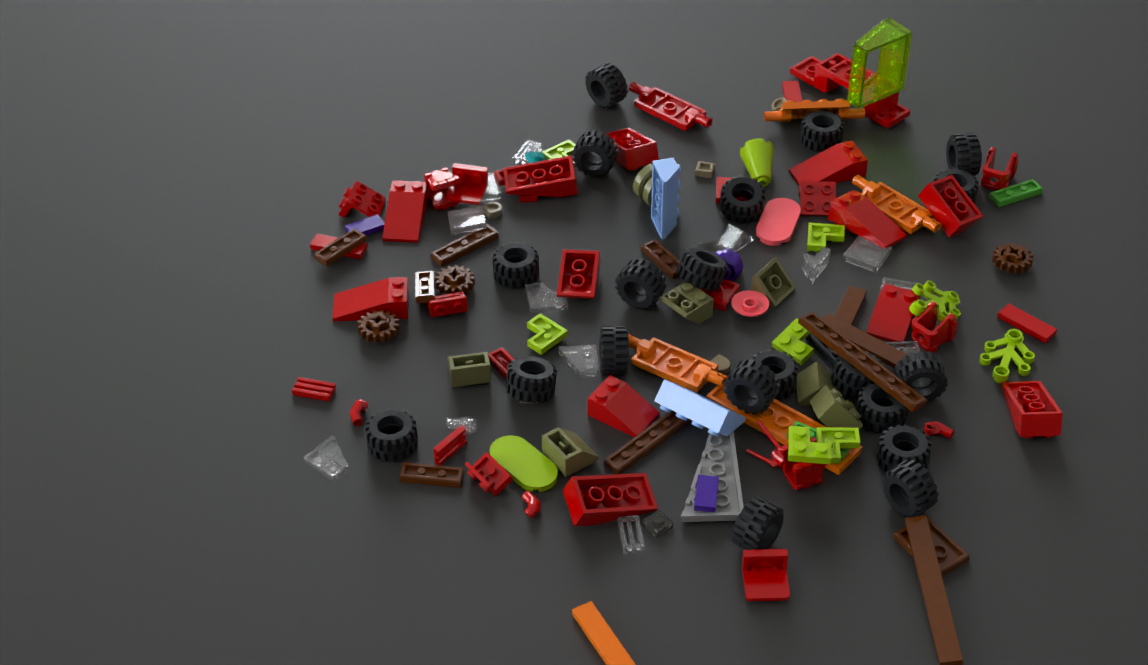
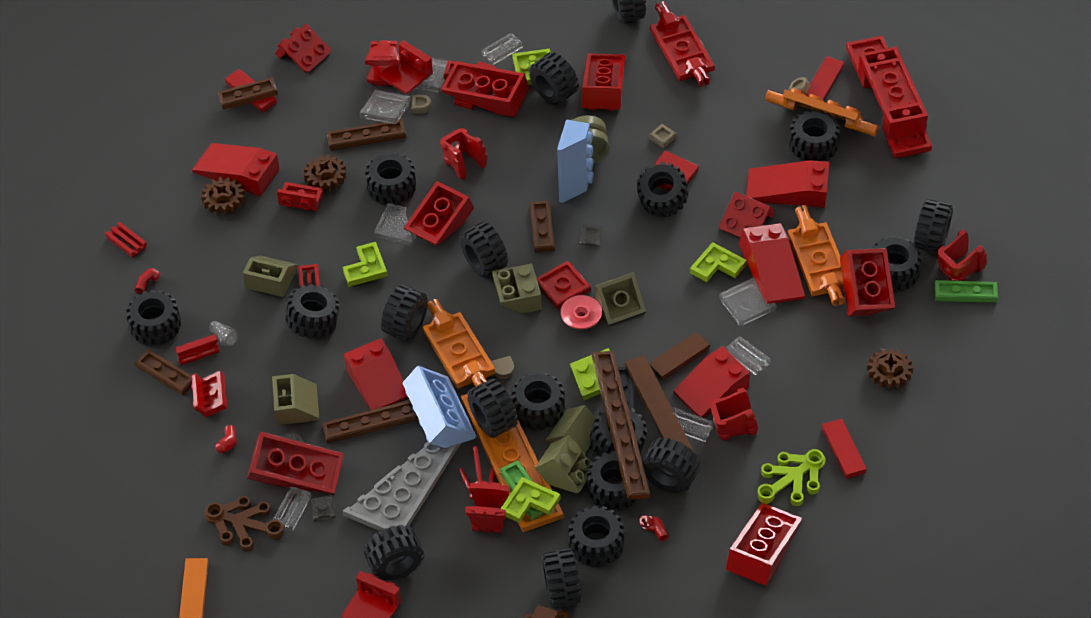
camera: 30 degrees right, 10 degrees up
(328, 459) = (88, 318): clear wing -> none
(367, 225) = (290, 77): tile -> none
(405, 211) = (334, 75): red slope -> none
(424, 287) = (292, 169): tile -> none
(524, 463) = (250, 395): lime tile -> none
(534, 156) = (501, 60): teal plate -> none
(560, 226) = (465, 143): none -> red piece
(572, 563) = (242, 520): none -> reddish brown plant
(582, 359) = (375, 305): clear wing -> none
(702, 268) = (552, 256): black tyre -> none
(706, 493) = (379, 498): dark purple tile -> none
(734, 239) = (626, 231): clear slope -> none
(734, 261) = (592, 256): dark purple plant -> none
(758, 159) = (716, 150): lime cone -> none
(778, 221) = (687, 227): coral tile -> none
(802, 450) = (484, 494): lime plate -> none
(815, 264) = (682, 295): clear slope -> none
(890, 76) = (907, 105): clear neon green windscreen -> none
(946, 298) = (761, 387): lime plant -> none

